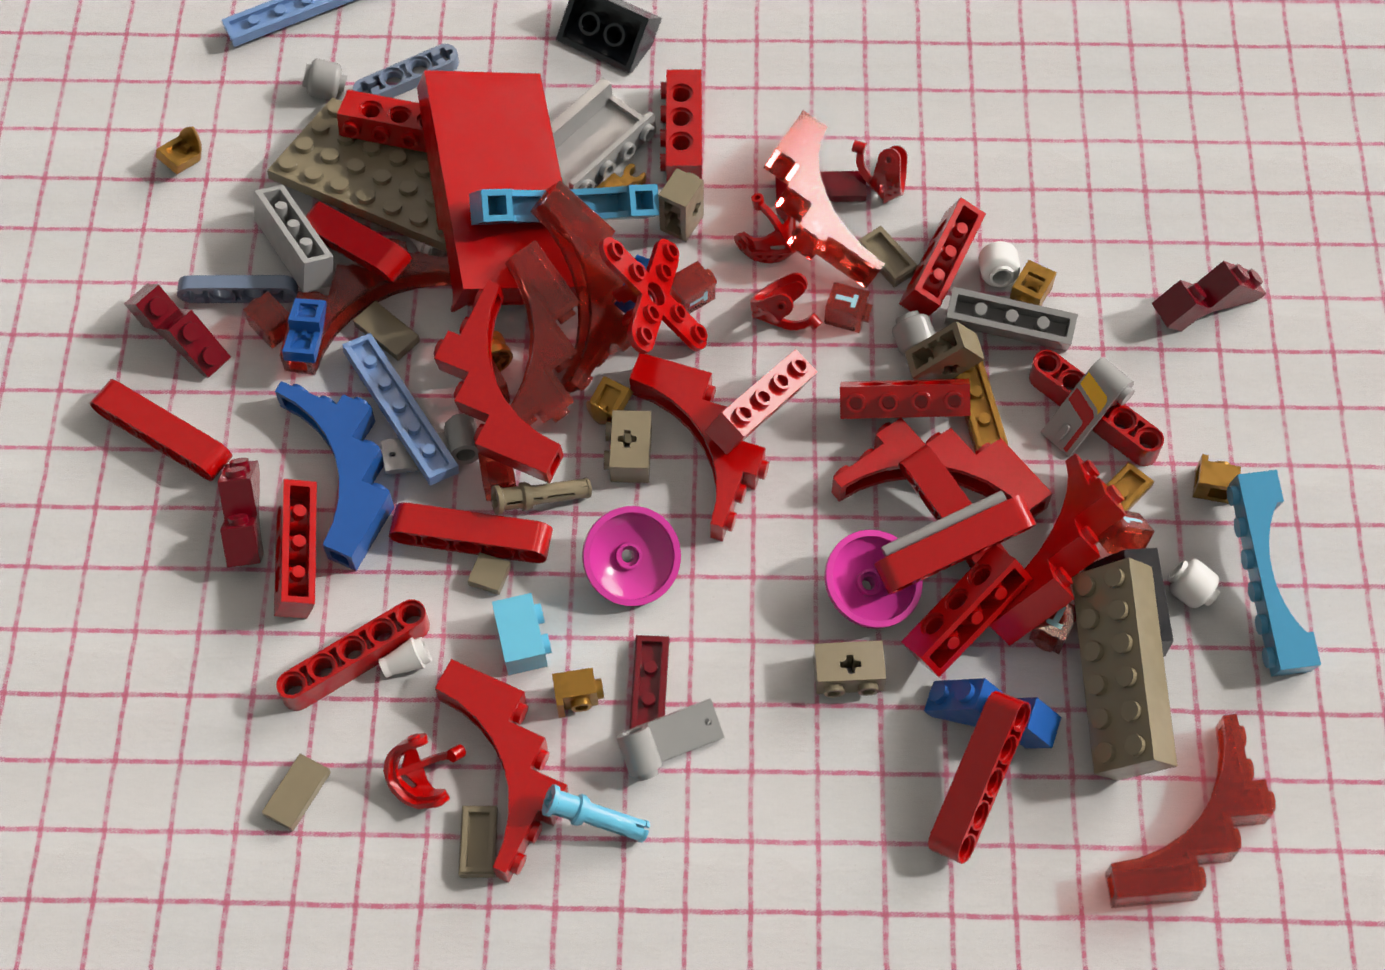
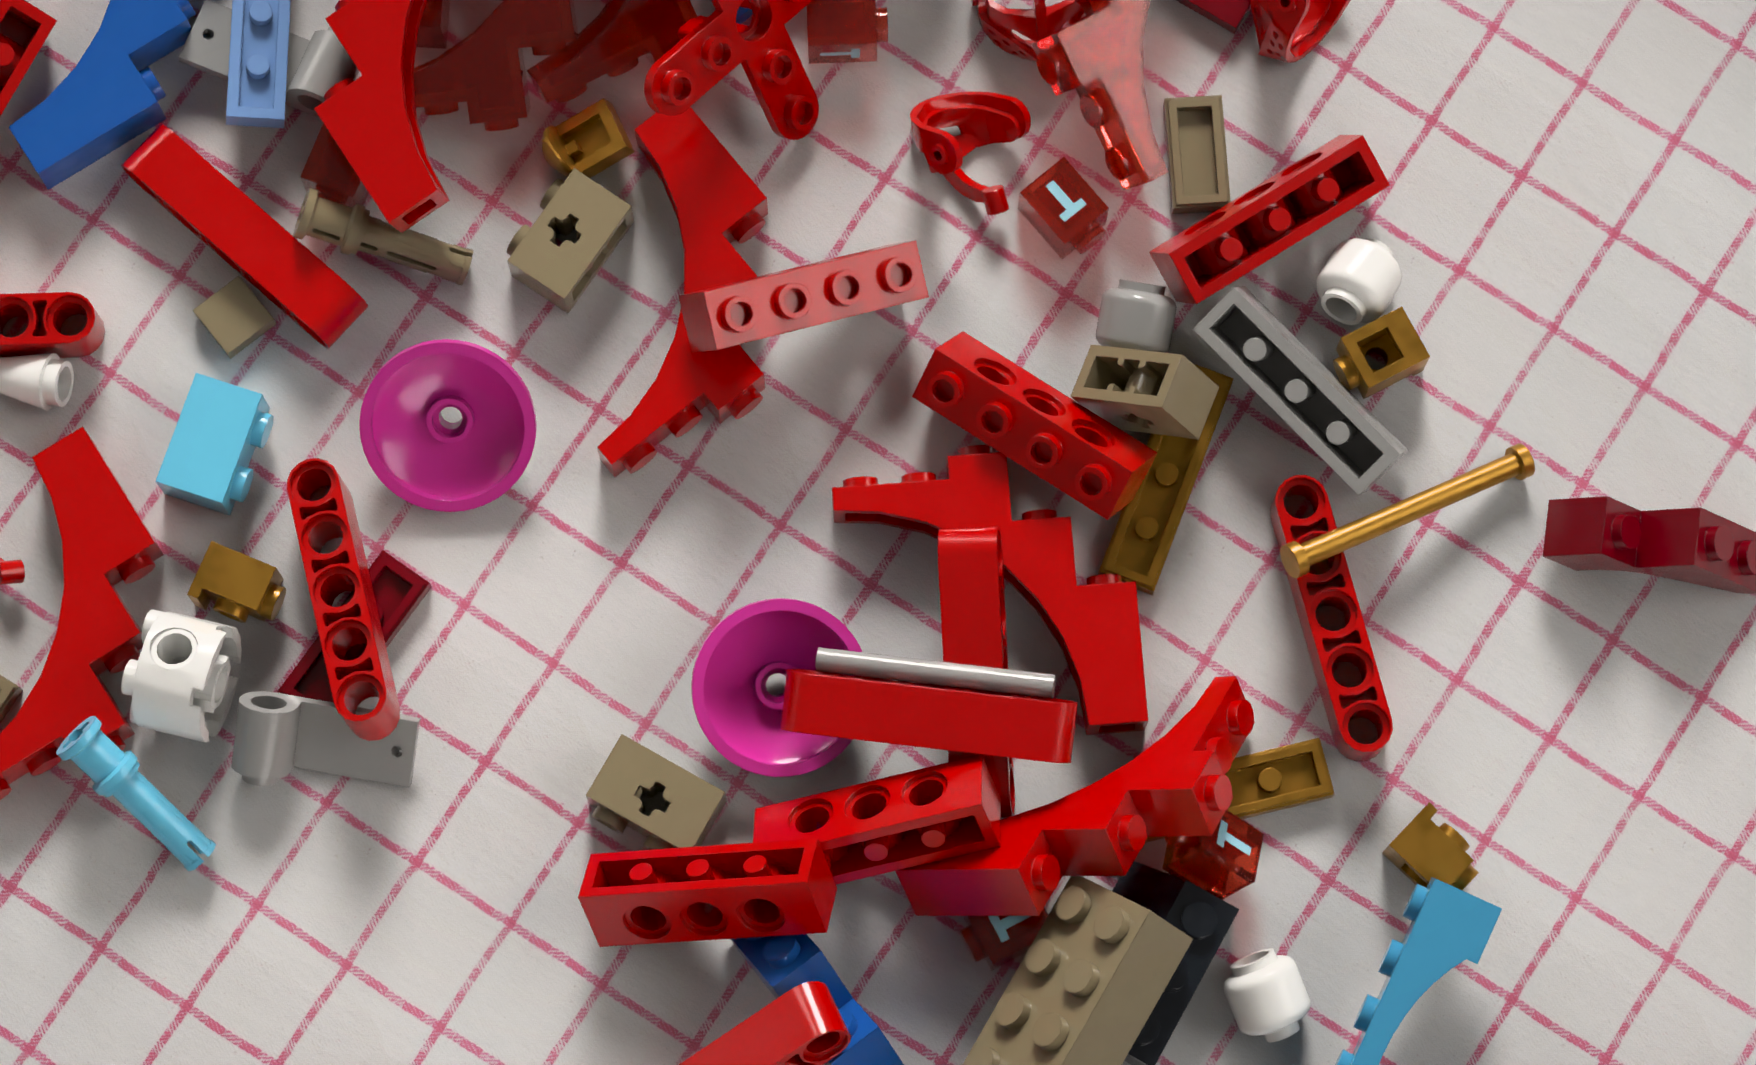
camera: 30 degrees right, 15 degrees up
(579, 745) = (182, 675): none -> white brick
(645, 672) = (358, 619): none -> red beam
(910, 687) = (708, 892): none -> red brick
(1068, 381) = (1299, 557): none -> pearl gold bar
(1087, 403) = (1324, 605): light grey door -> none

